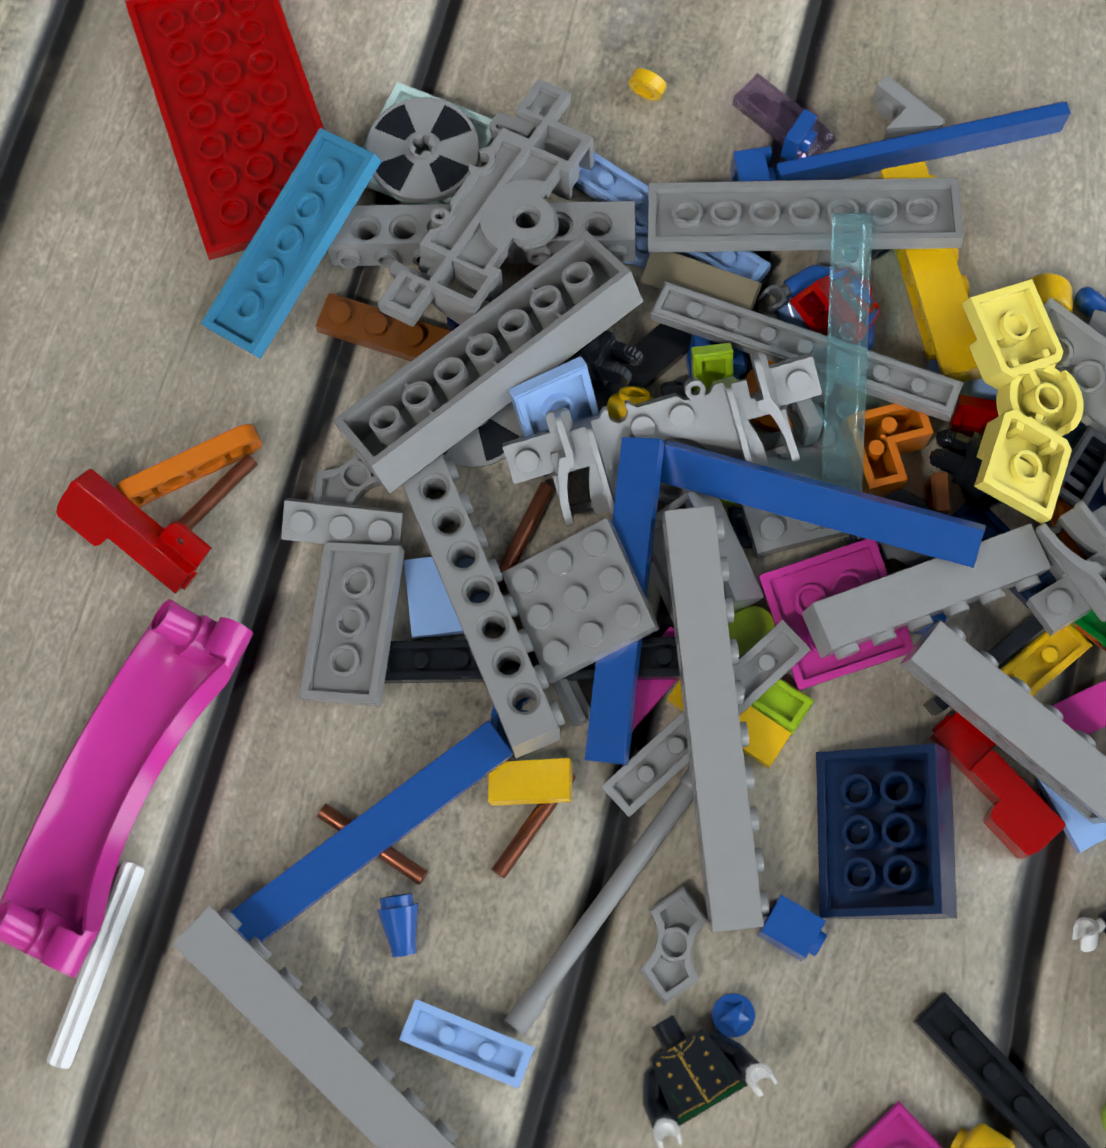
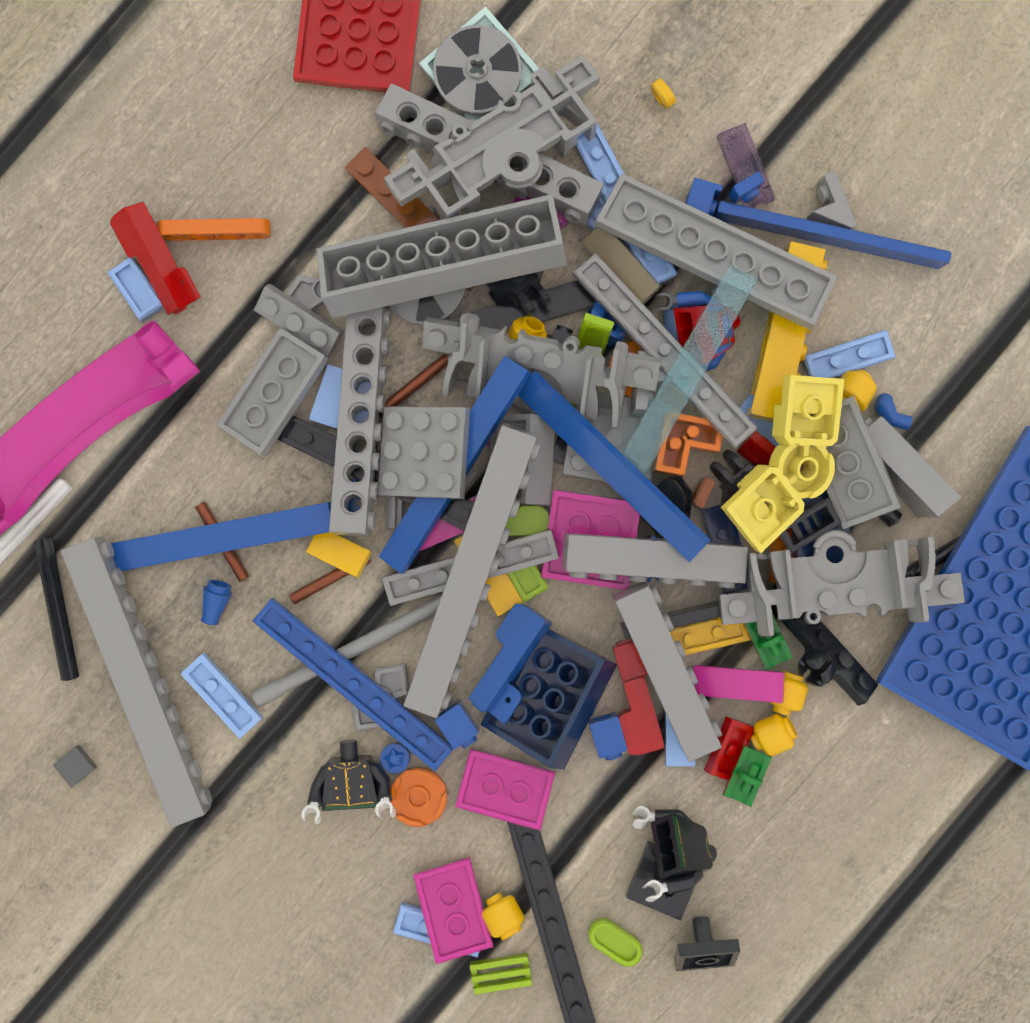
camera: 25 degrees right, 15 degrees up
(121, 582) = (136, 289): none -> light blue tile
(193, 1039) = (56, 609): none -> black axle
(218, 492) = (224, 257): copper bar -> none
(291, 242) = (351, 98): dark azure plate -> none
(558, 388) = (482, 300): light blue tile -> none
(634, 940) = (353, 684): none -> blue tile
(794, 1051) = (418, 796): none -> orange tile
(812, 773) = (520, 636): none -> blue piece
(896, 983) = (505, 789): none -> dark pink tile
(988, 849) = (608, 736): none -> blue brick
(1024, 260) = (850, 356): none -> light blue tile

